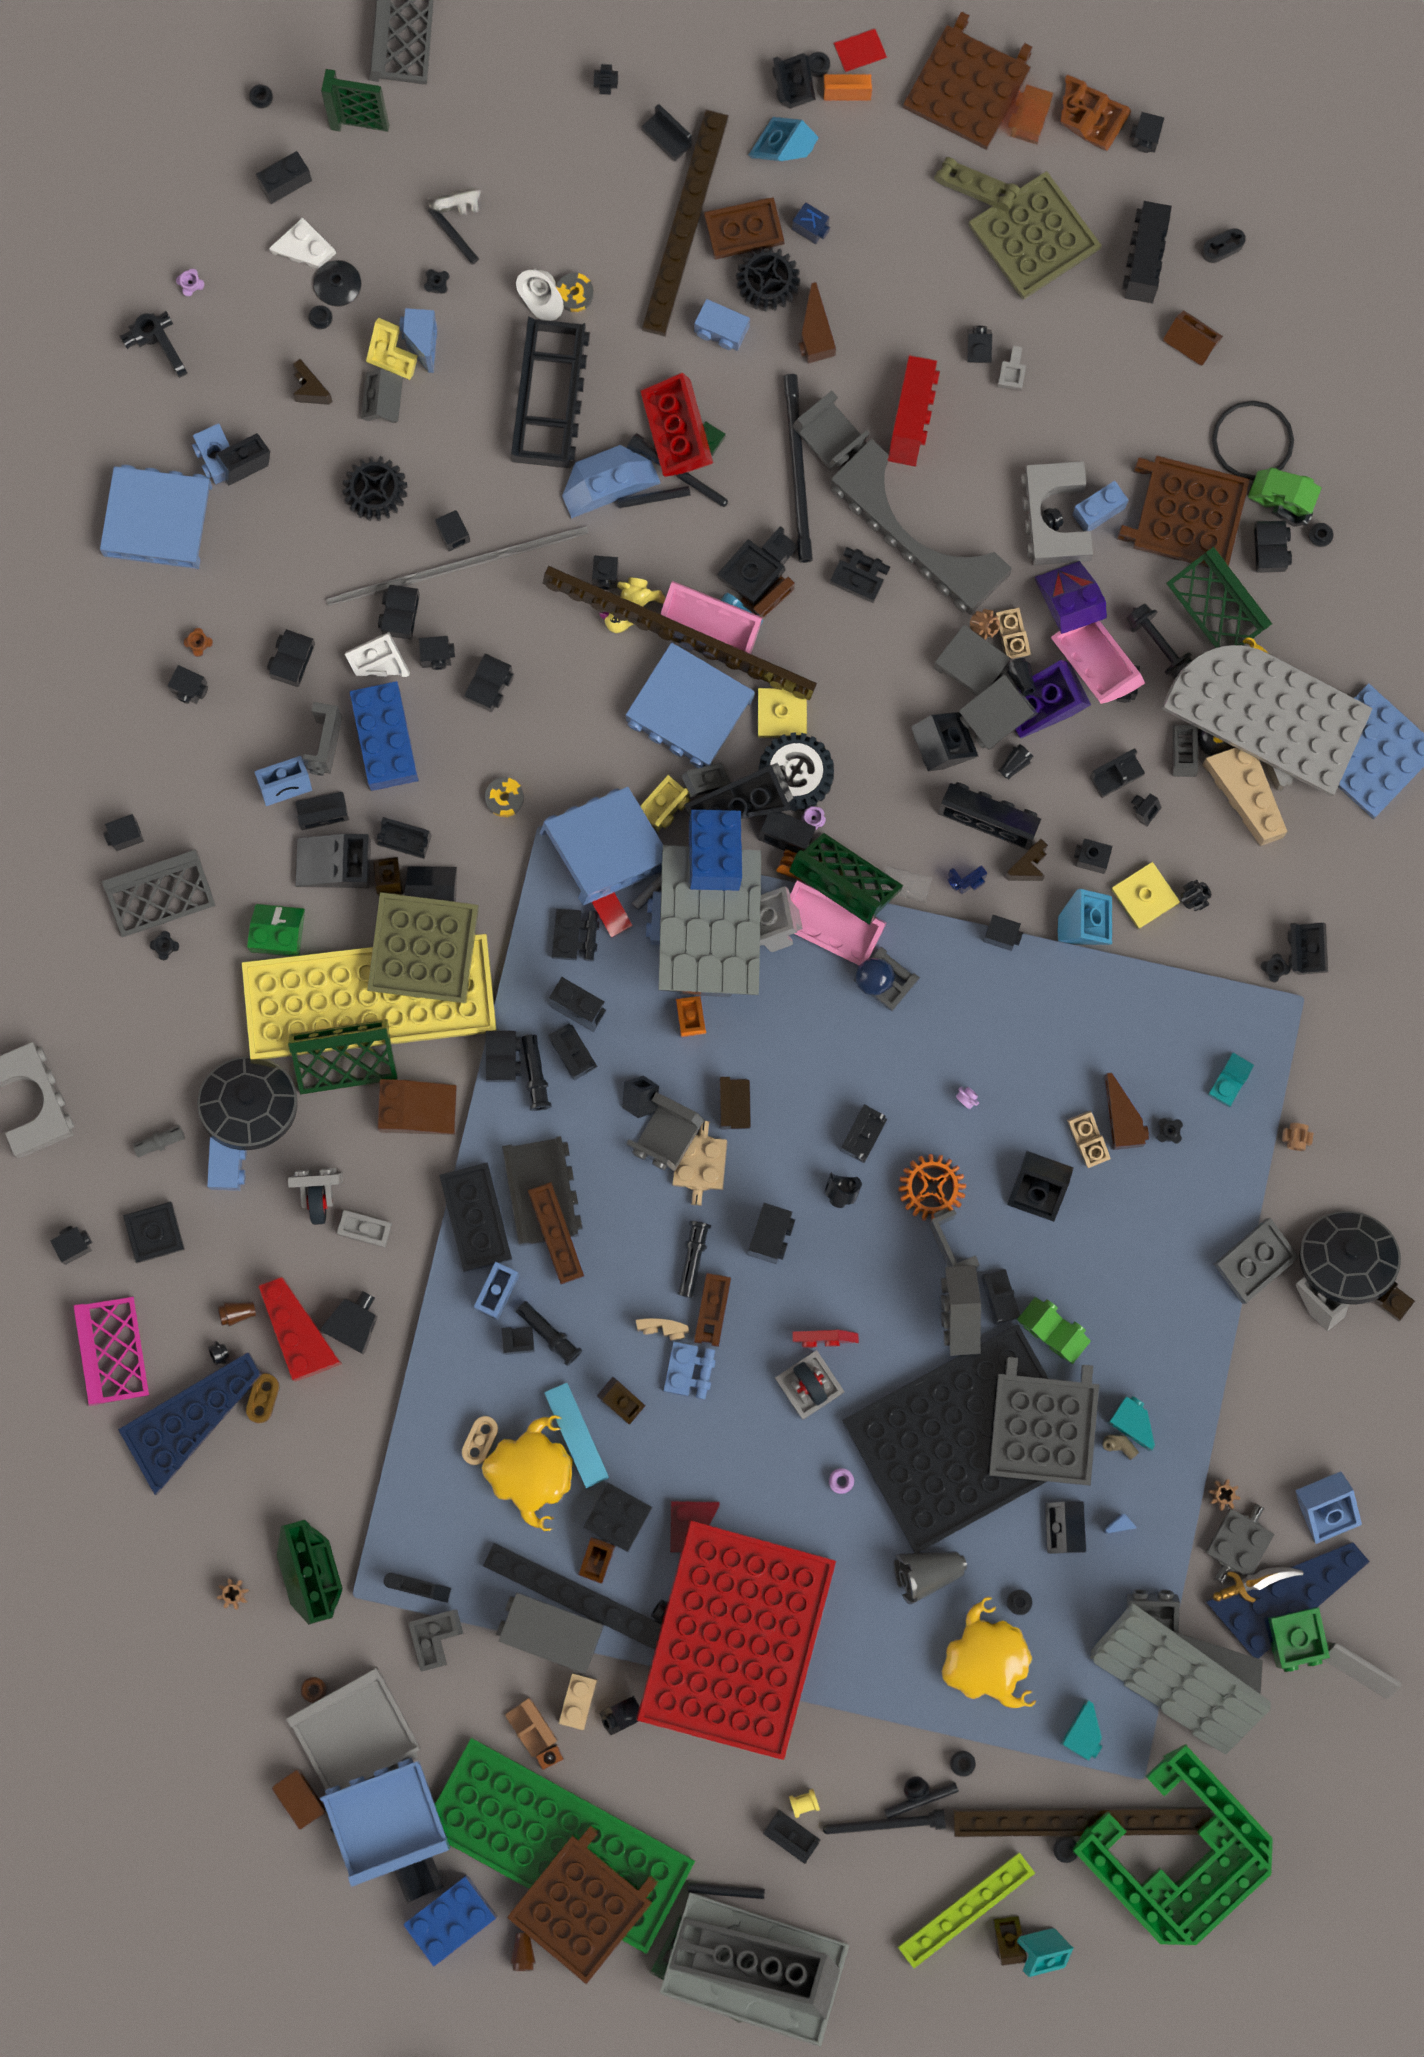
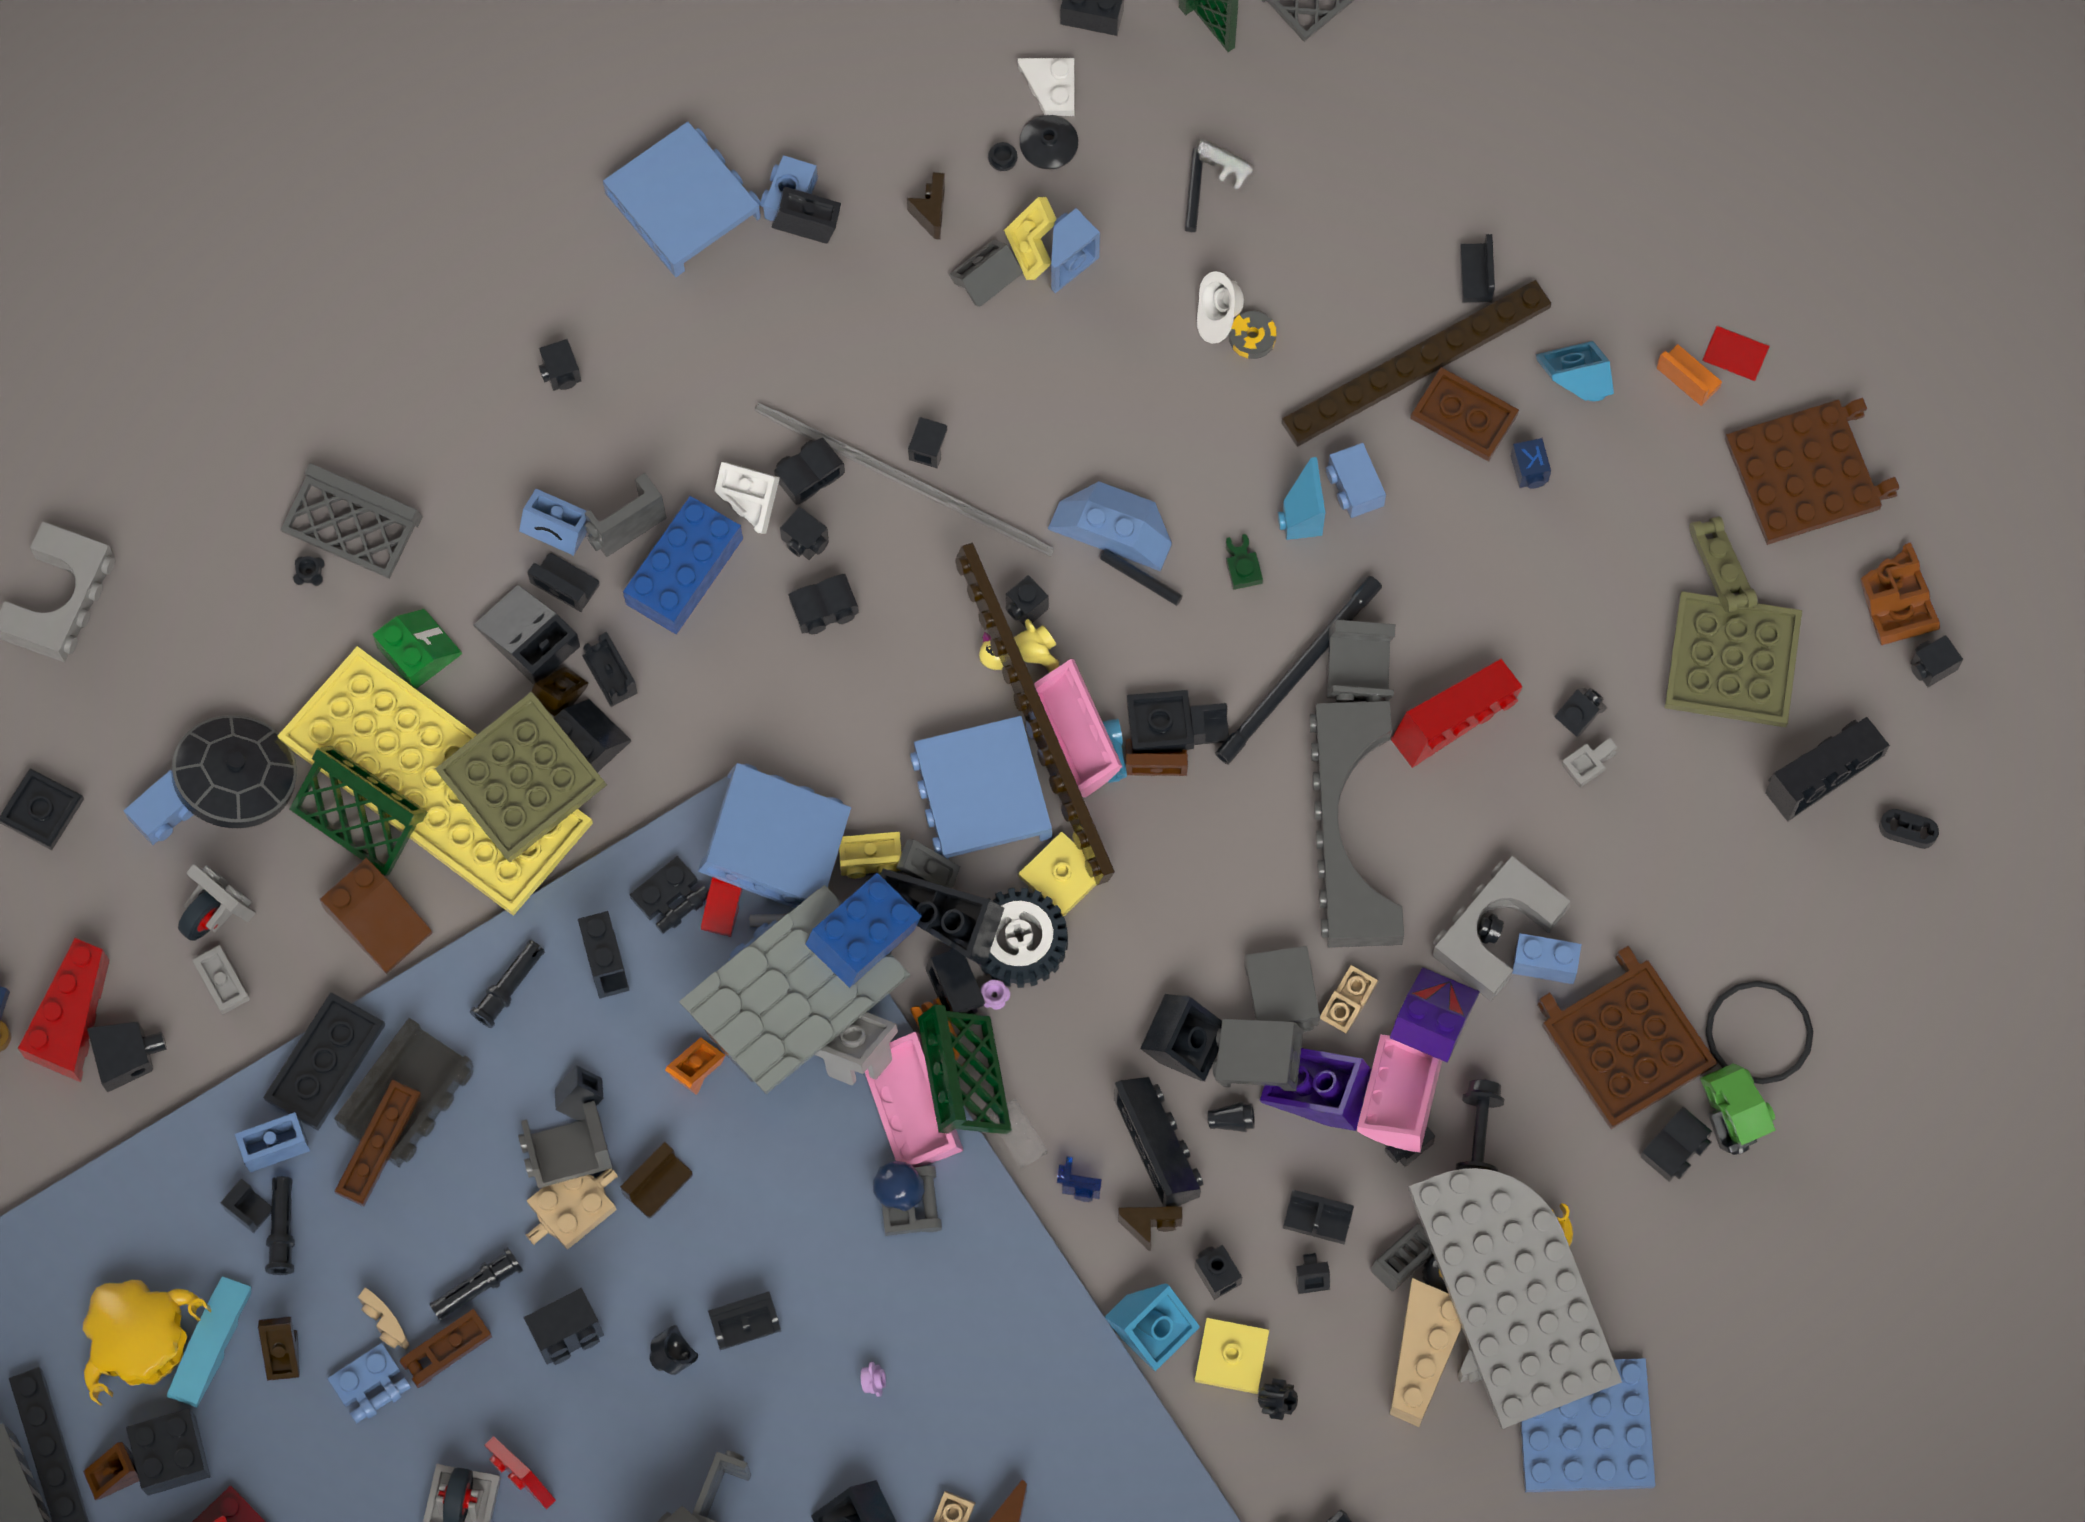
camera: 45 degrees right, 10 degrees down
(123, 833) = (374, 441): black brick -> none
(158, 1141) = (127, 734): dark grey pin -> none
(160, 322) = (842, 46): black piece -> none
(185, 277) = (919, 19): lavender plate -> none
(191, 640) = (605, 330): dark orange plate -> none
(235, 1312) = (35, 945): reddish brown cone -> none
(291, 658) = (673, 424): black brick -> none
(362, 473) = (871, 343): black gear -> none
(437, 288) = (1137, 224): black plate -> none
(478, 1440) = (122, 1261): tan plate -> none
(501, 1056) = (493, 940): black brick -> none
(504, 786) = (735, 730): dark grey piece -> none
(571, 429) = (1149, 430): black window -> none
(572, 1051) = (560, 995): black hinge -> none
(606, 79) = (1468, 174): black gear -> none
(639, 446) = (1172, 518): black piece -> none
(676, 426) = (1223, 531): red slope -> none
(710, 366) = (1304, 505): none -> dark azure slope
(751, 269) = (1420, 488): black gear -> none
(793, 80) = (1642, 324): black bracket -> none
(816, 337) = (1438, 560): reddish brown slope -> none
(819, 64) = (1682, 331): black tile -> none
(856, 580) = (1251, 820): black plate -> none
(924, 1178) = (759, 1402): orange gear -> none
(985, 623) = (1329, 965): medium nougat gear -> none
(1003, 933) = (1059, 1260): black brick -> none
(1021, 674) = (1314, 1040): black cone -> none
(1031, 114) = (1838, 547): clear orange brick -> none
(1192, 337) = (1793, 884): reddish brown panel -> none
(1232, 586) = (1599, 1144): dark green fence -> none
(1318, 541) = (1735, 1187): black plate -> none

